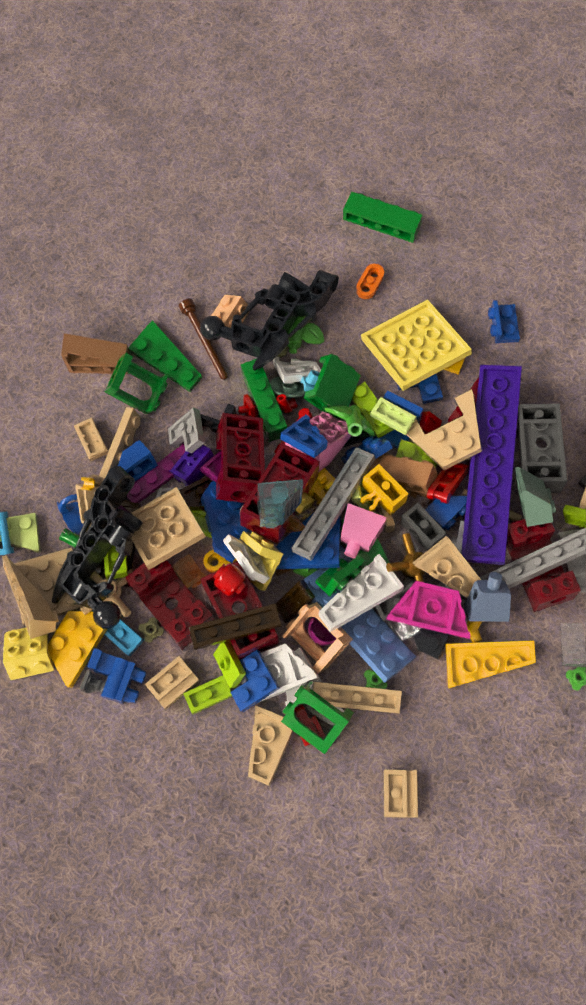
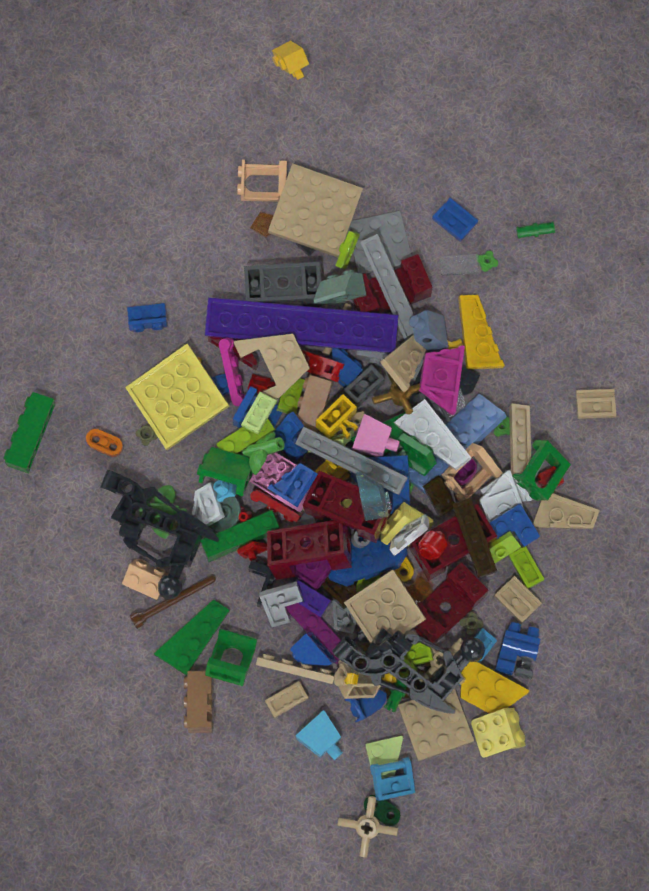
camera: 100 degrees left, 5 degrees up
(32, 605) = (463, 726): tan wedge -> none
(47, 469) = (321, 737): none -> medium azure torso
(377, 314) = (146, 439): none -> olive plate
(443, 392) = (230, 365): none -> dark pink plate

